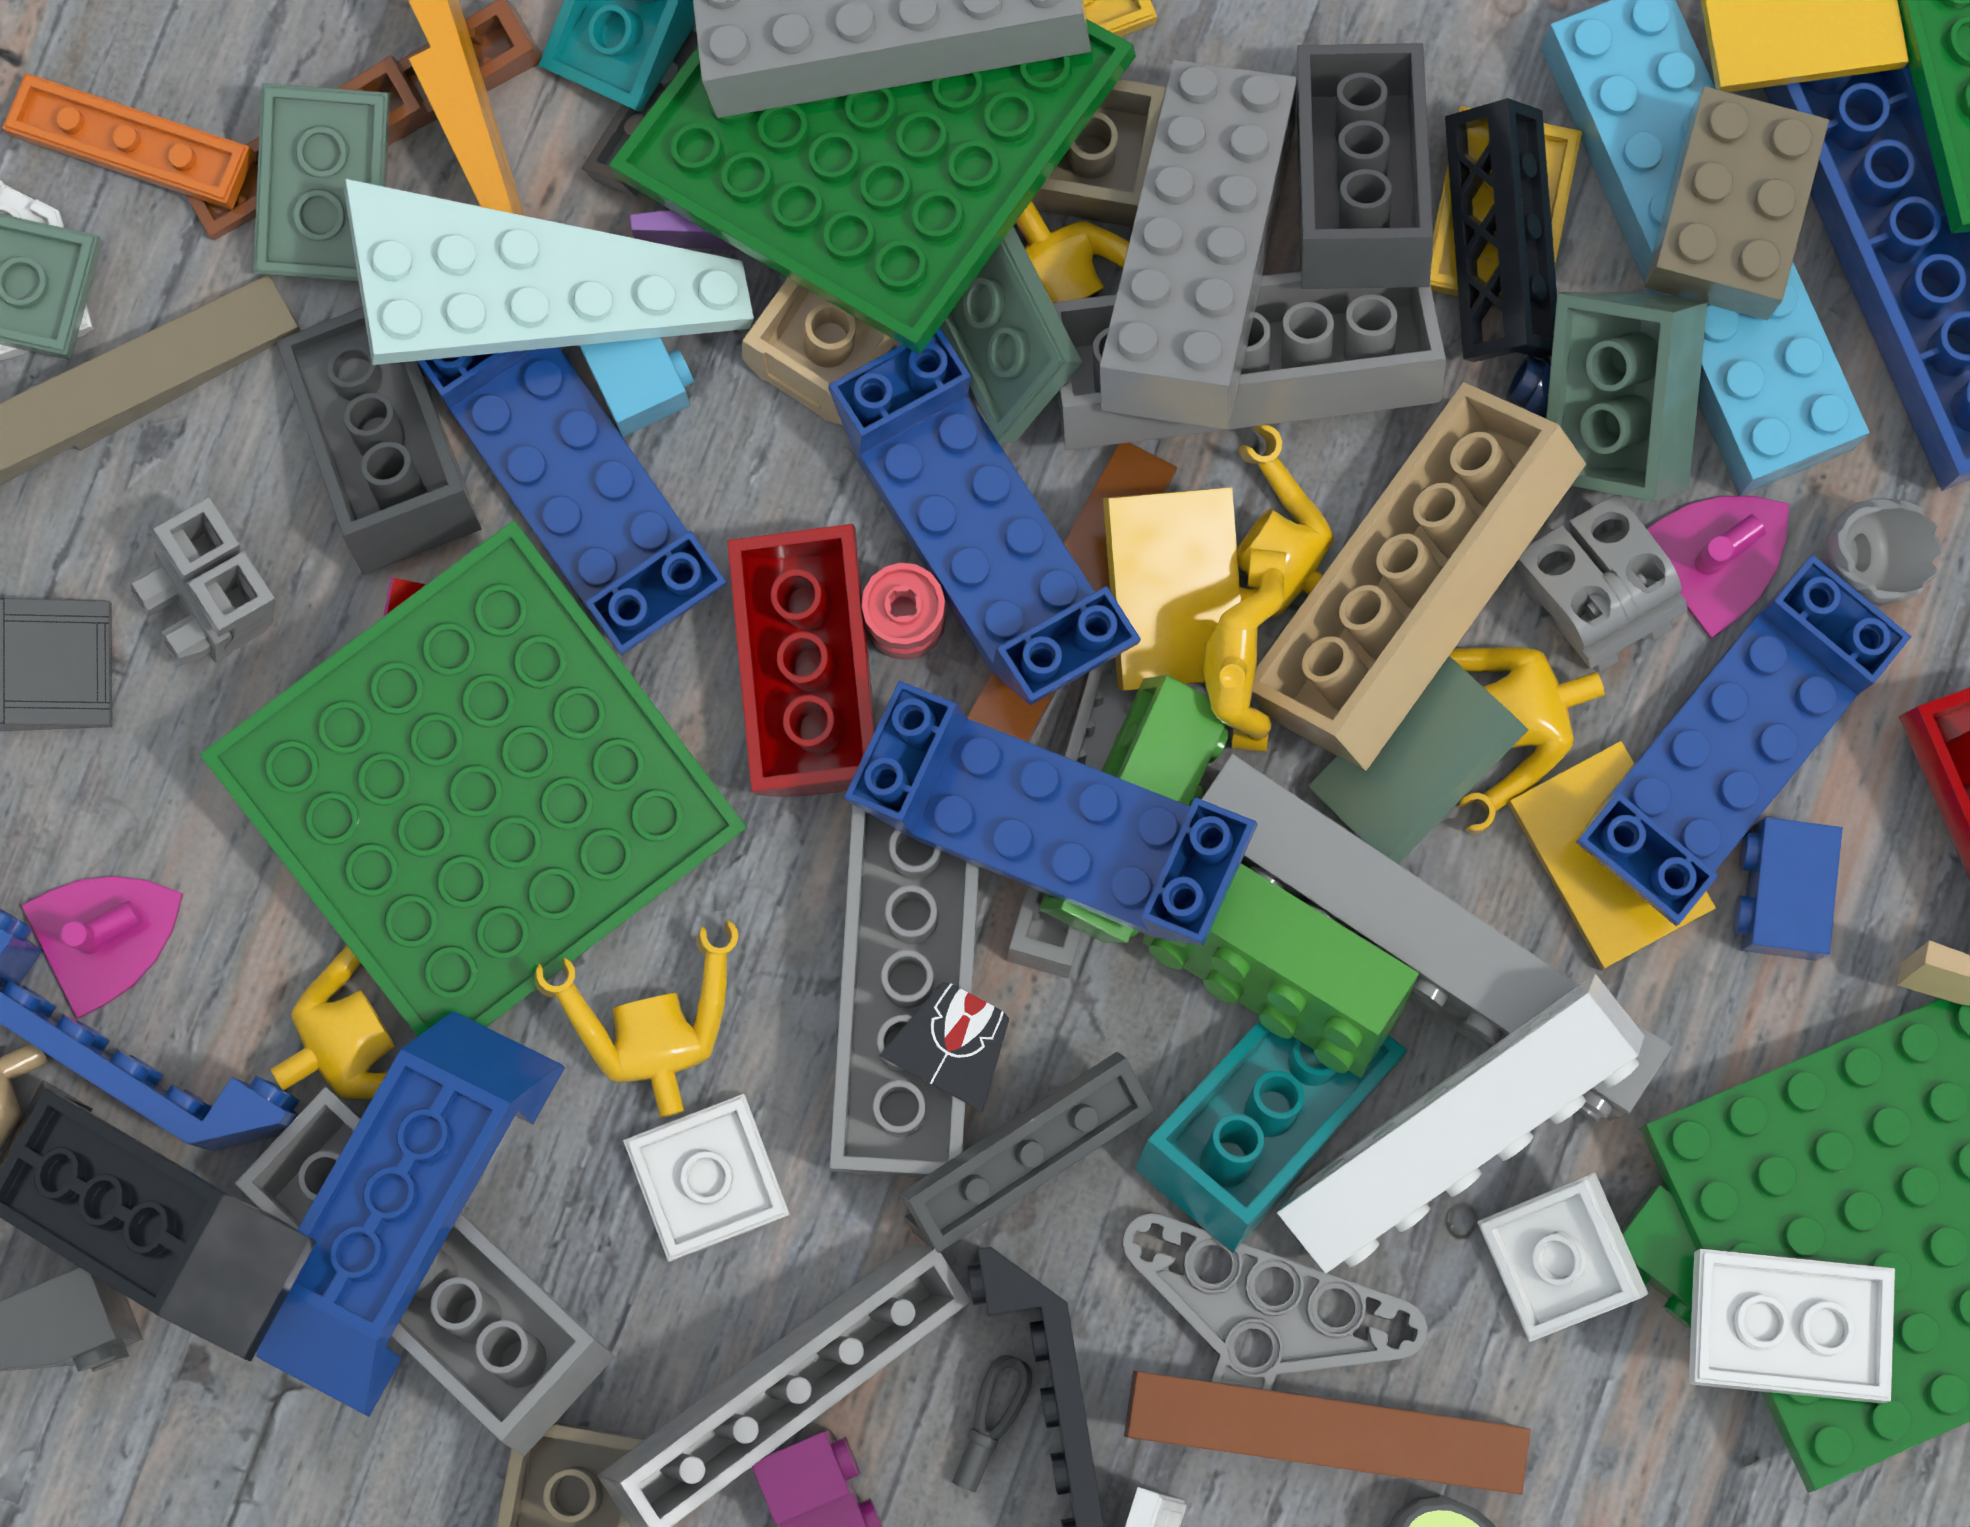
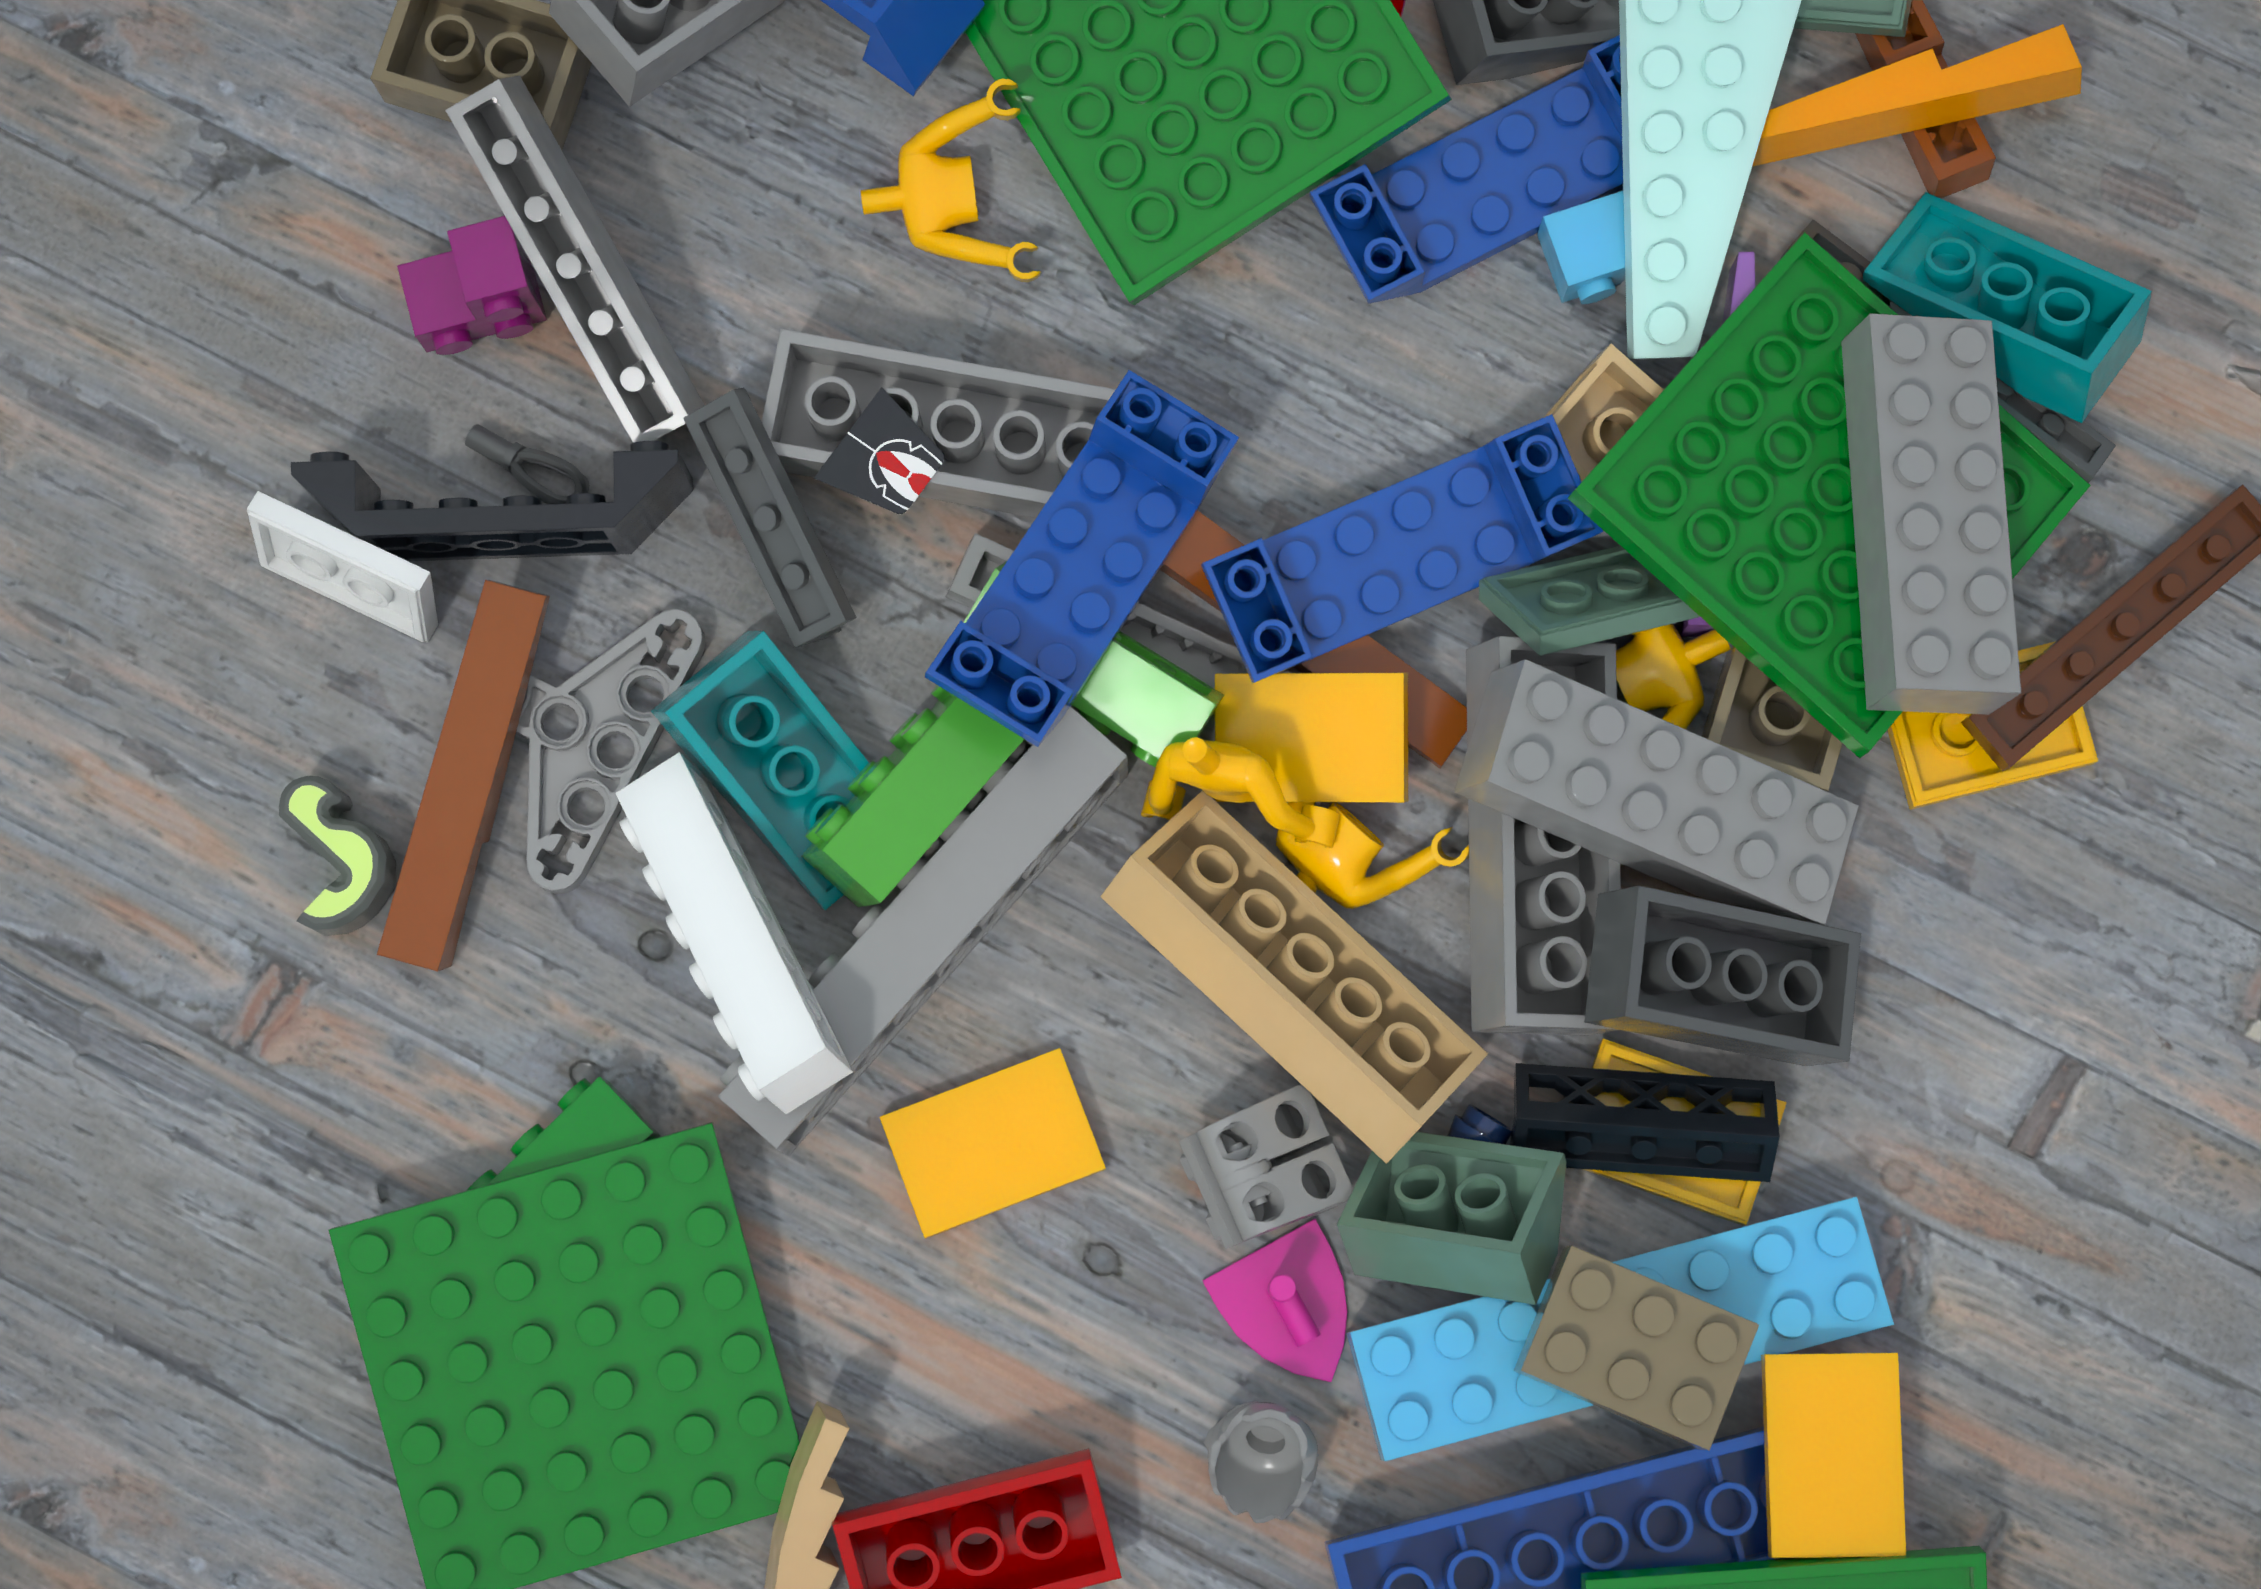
camera: 100 degrees right, 0 degrees up
(706, 1178) = (799, 231): white tile -> none
(802, 659) = (1290, 366): red brick -> none
(904, 611) = (1321, 470): coral wheel -> none
(1425, 766) = (1100, 959): sand green tile -> none
(1539, 704) = (1146, 1070): yellow piece -> none
(1562, 1257) = (598, 1029): white tile -> none
(1740, 738) = (1084, 1279): blue slope -> none
(1788, 888) = (932, 1312): blue brick -> none
(1792, 1326) = (488, 1230): white tile -> none

